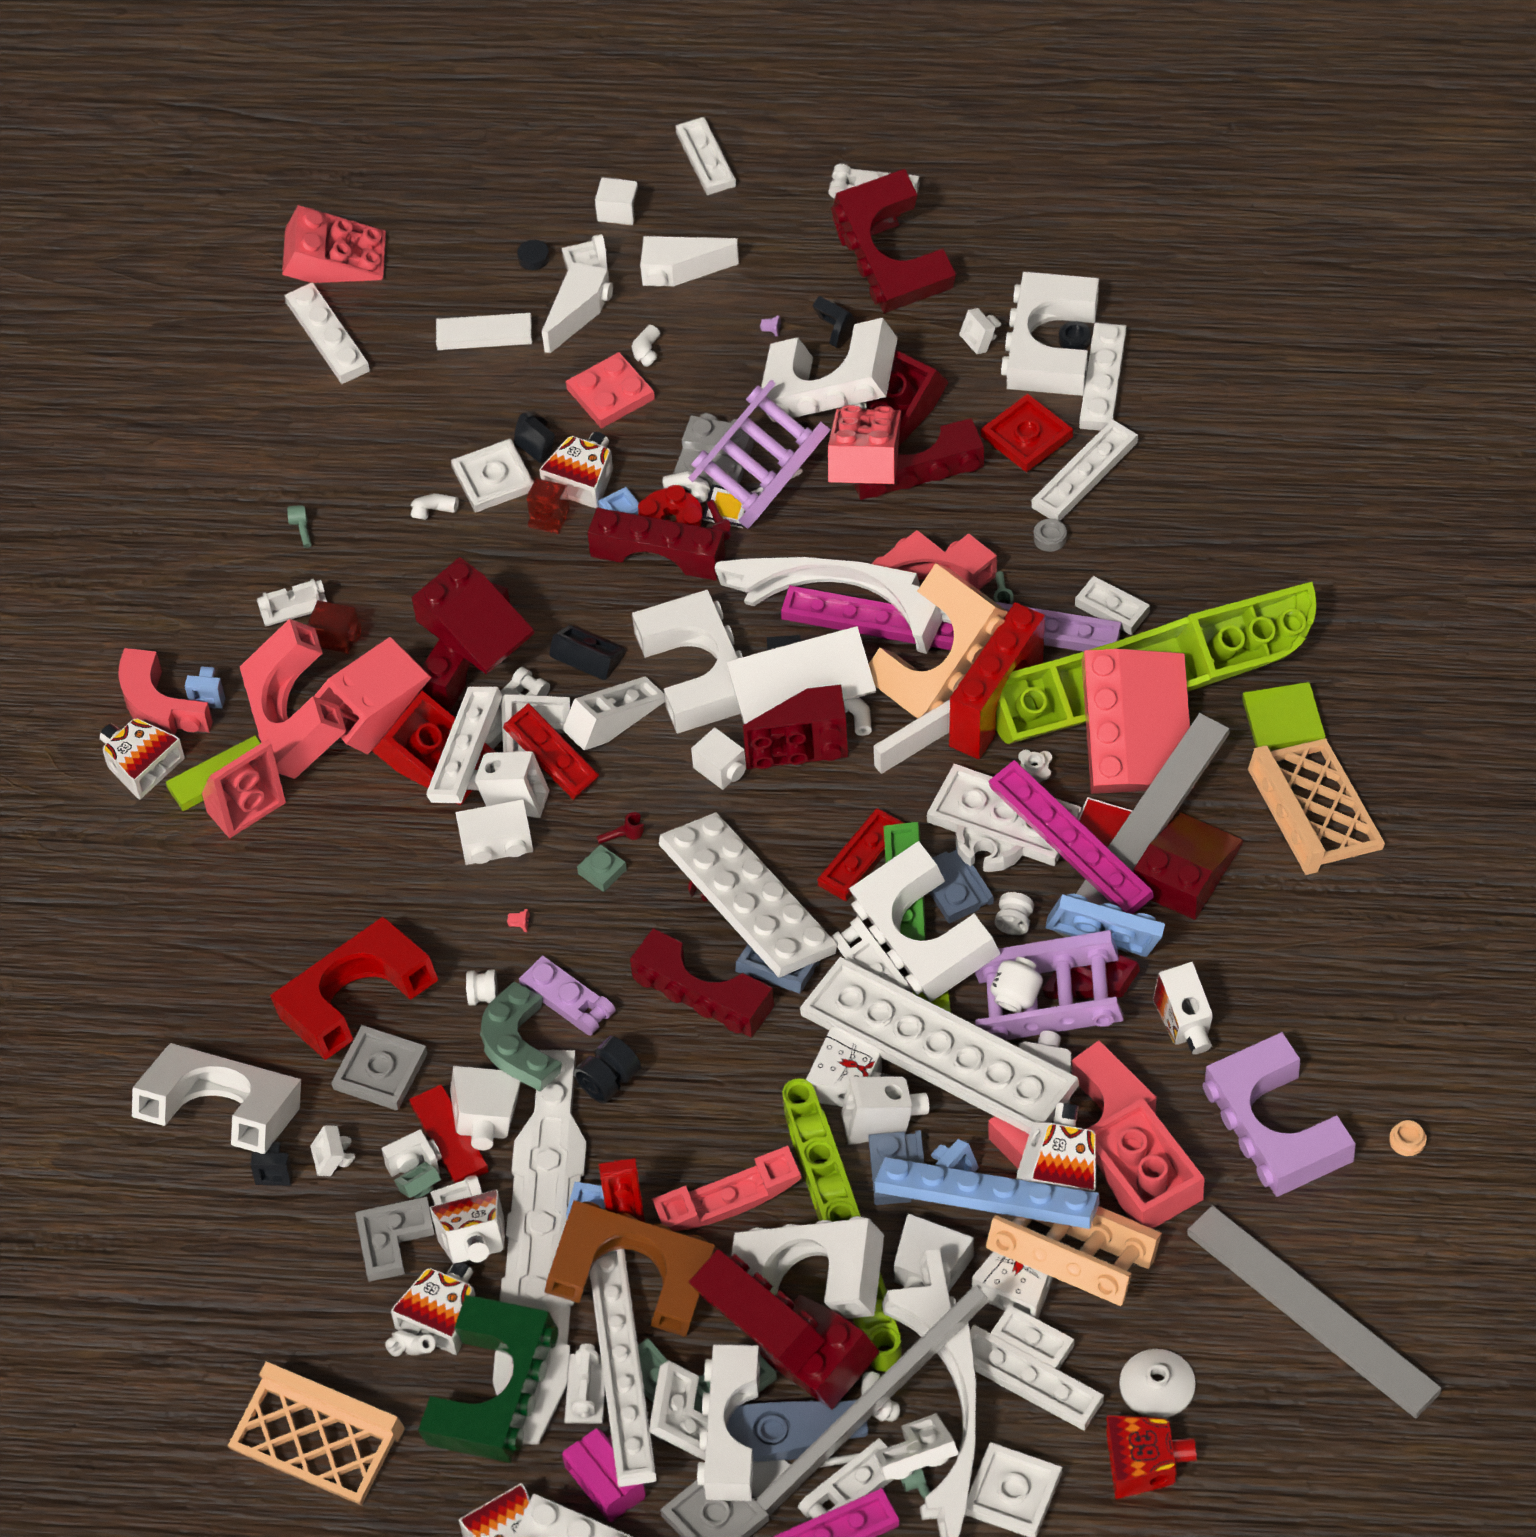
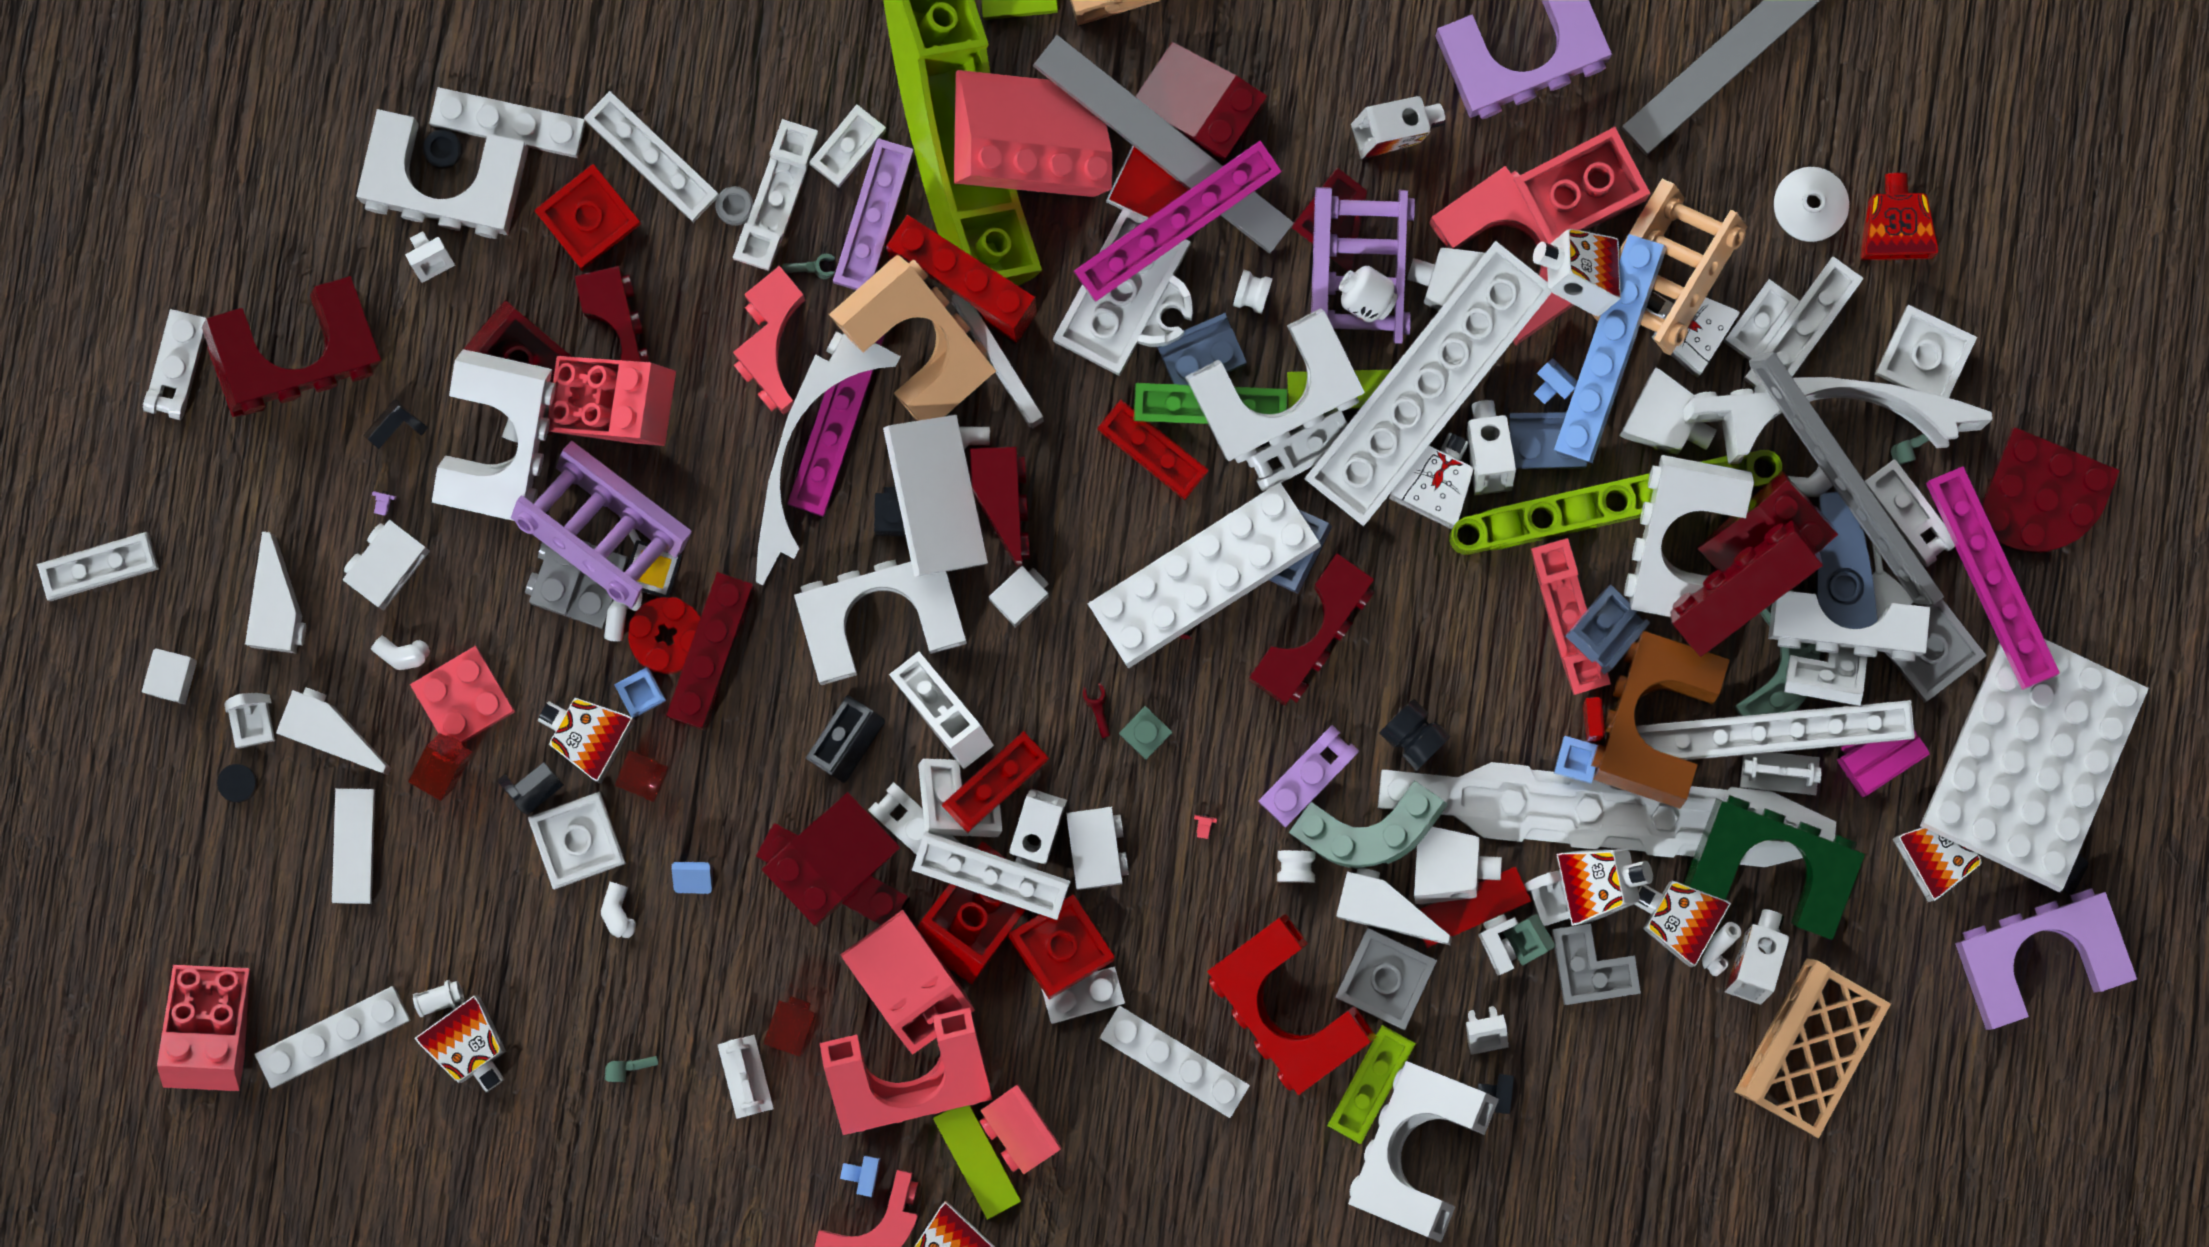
camera: 90 degrees left, 30 degrees up
(304, 913) = (1174, 1061): none -> white plate
(314, 1075) = (1371, 1084): none -> lime tile
(320, 412) = (466, 1044): none -> torso
(360, 399) = (439, 998): none -> white pin
(364, 840) = (1090, 995): none -> white plate
(398, 1370) = (1754, 972): none -> white torso
(404, 812) = (1061, 949): none -> red plate
(449, 1043) = (1379, 905): none -> white slope
(465, 547) = (692, 877): none -> light blue slope
(549, 371) = (440, 766): none -> clear red brick
(713, 1215) = (1607, 629): none -> sand blue plate
(717, 326) = (384, 564): none -> white brick
(721, 524) = (689, 576): dark red hand -> none
(925, 1445) = (1891, 435): white plate -> none
(1040, 771) = (1064, 245): white plate -> none
(1058, 561) = (776, 195): none -> white slope
(1130, 932) = (1298, 195): light blue plate -> none

